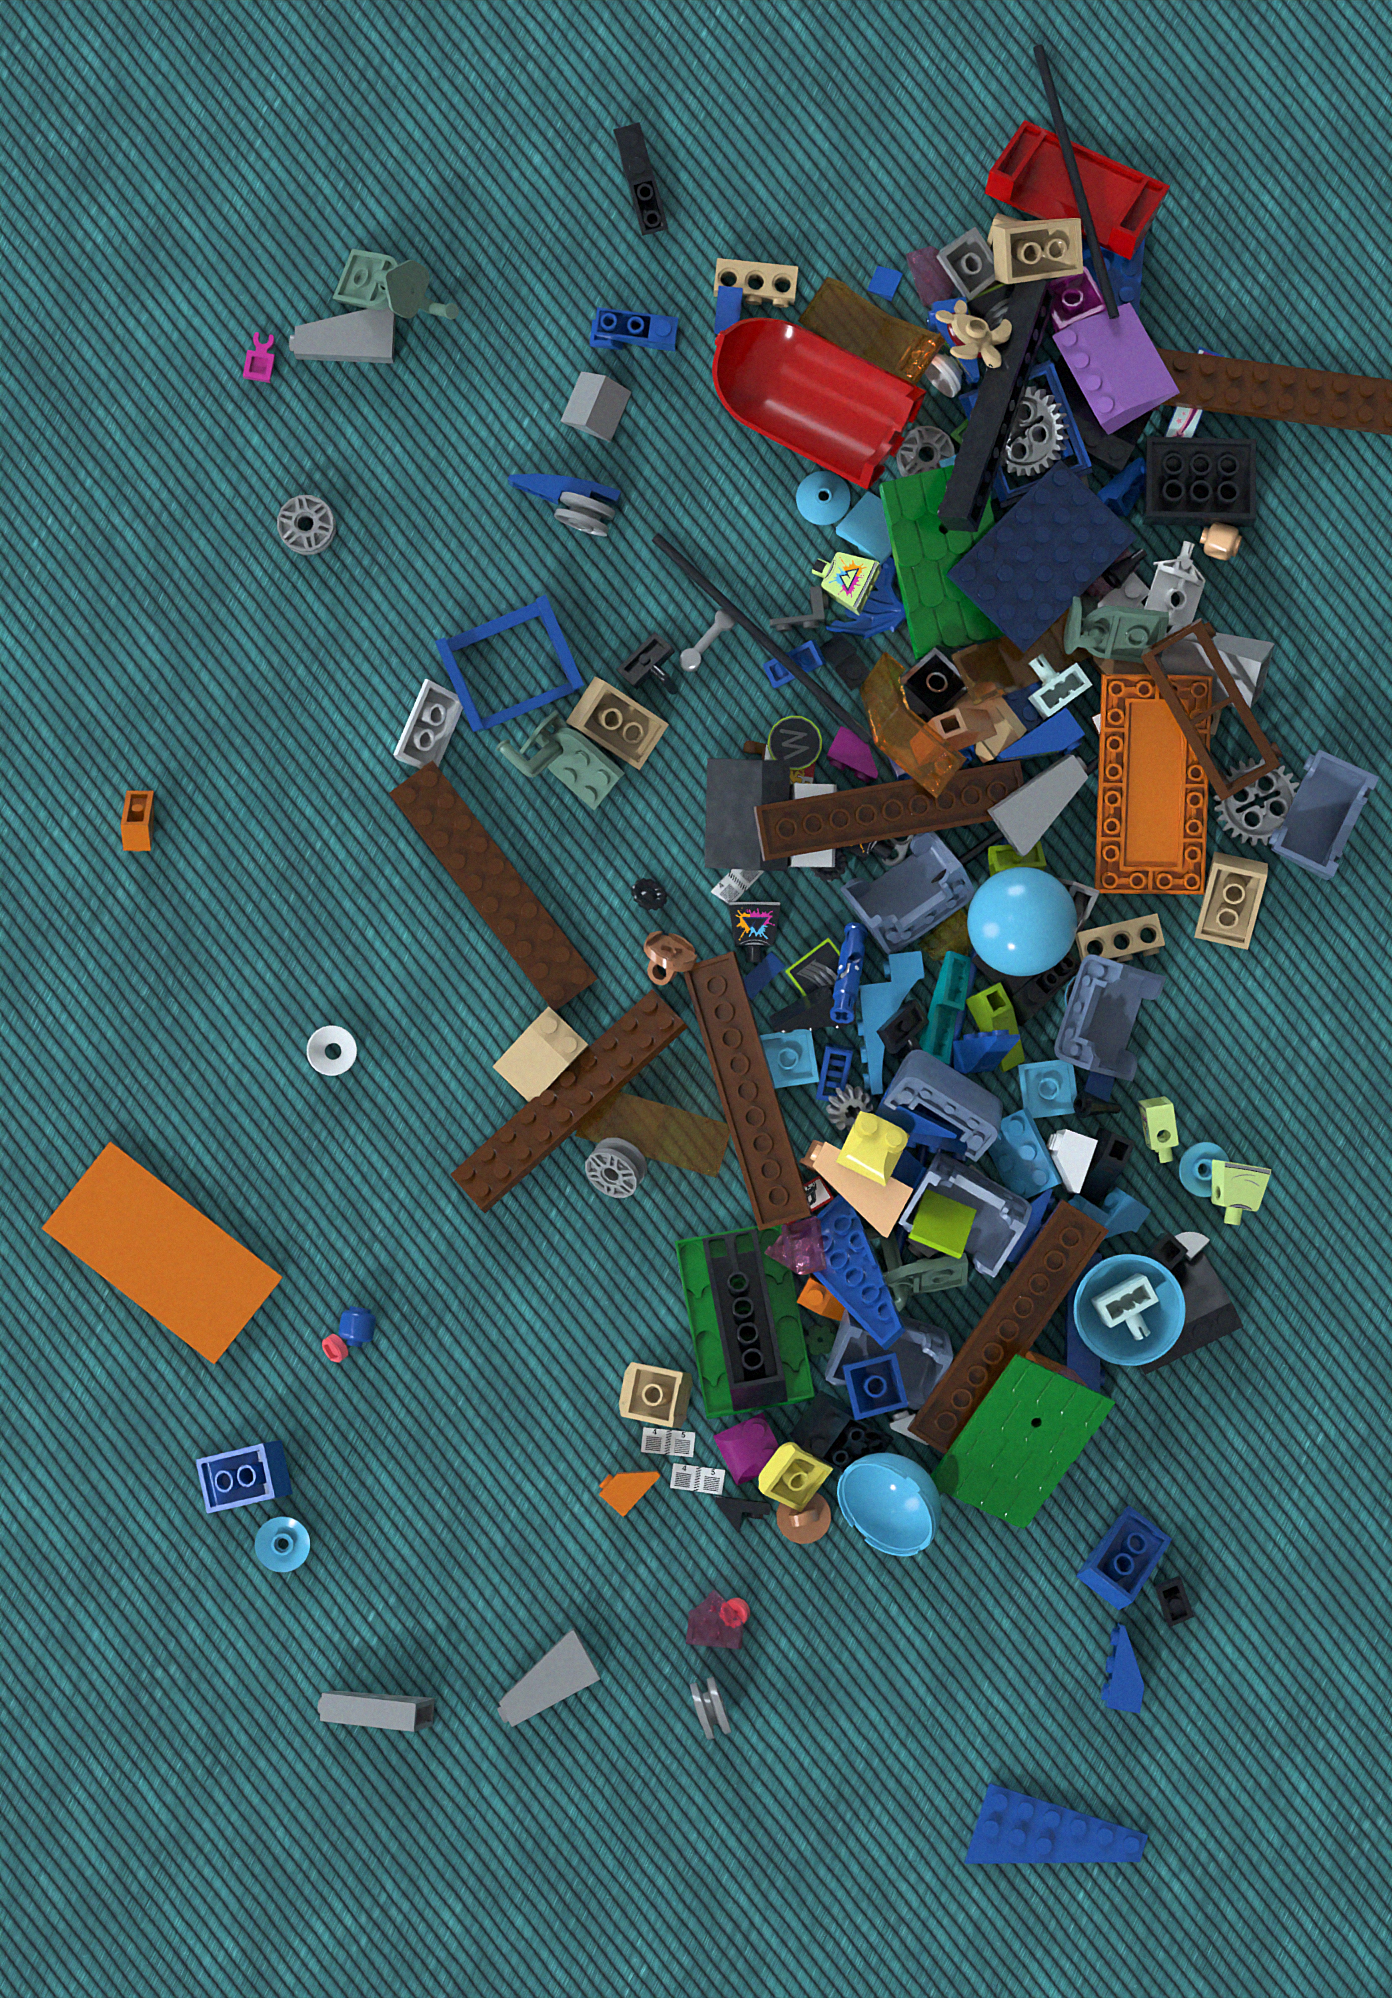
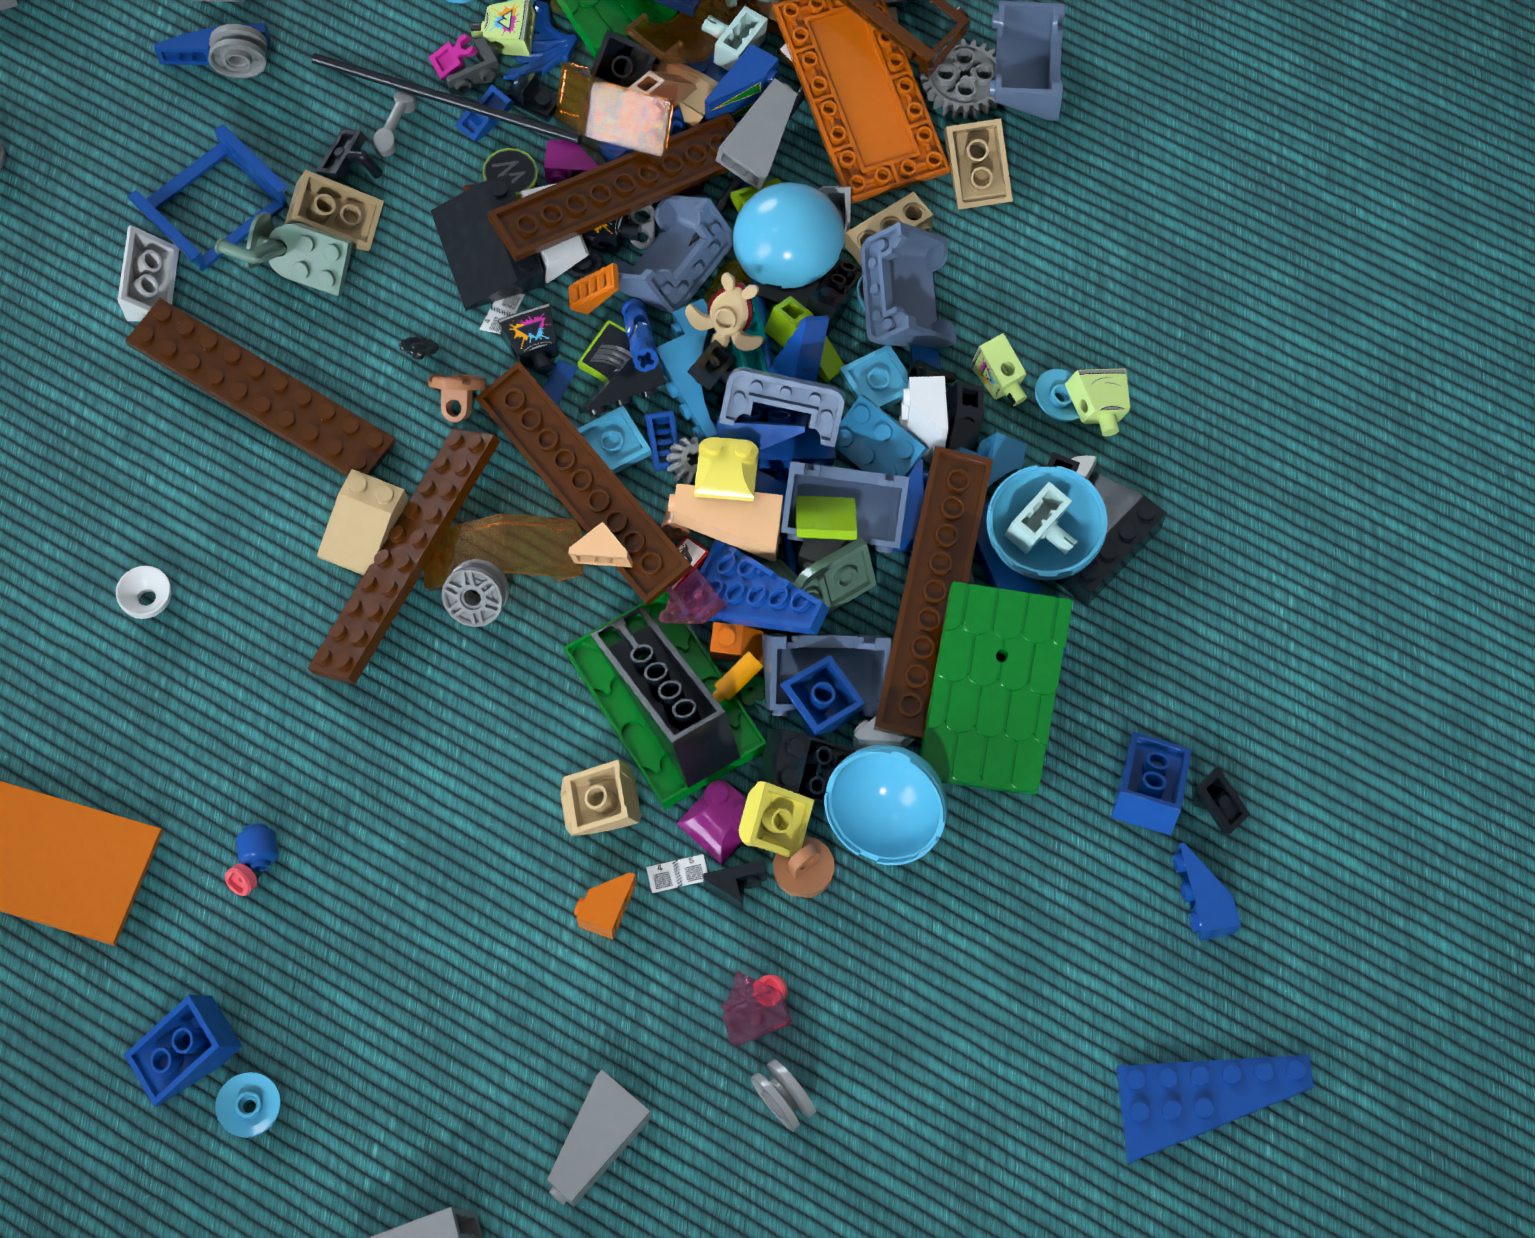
camera: 15 degrees left, 20 degrees down
(668, 1442) = (632, 848): white sticker -> none
(741, 1170) = (600, 548): none -> light nougat slope
(782, 593) = (450, 57): none -> dark pink plate
(810, 1332) = (737, 677): none -> light orange cylinder
(825, 901) = (592, 290): none -> orange slope
(935, 986) = (729, 314): none -> tan animal

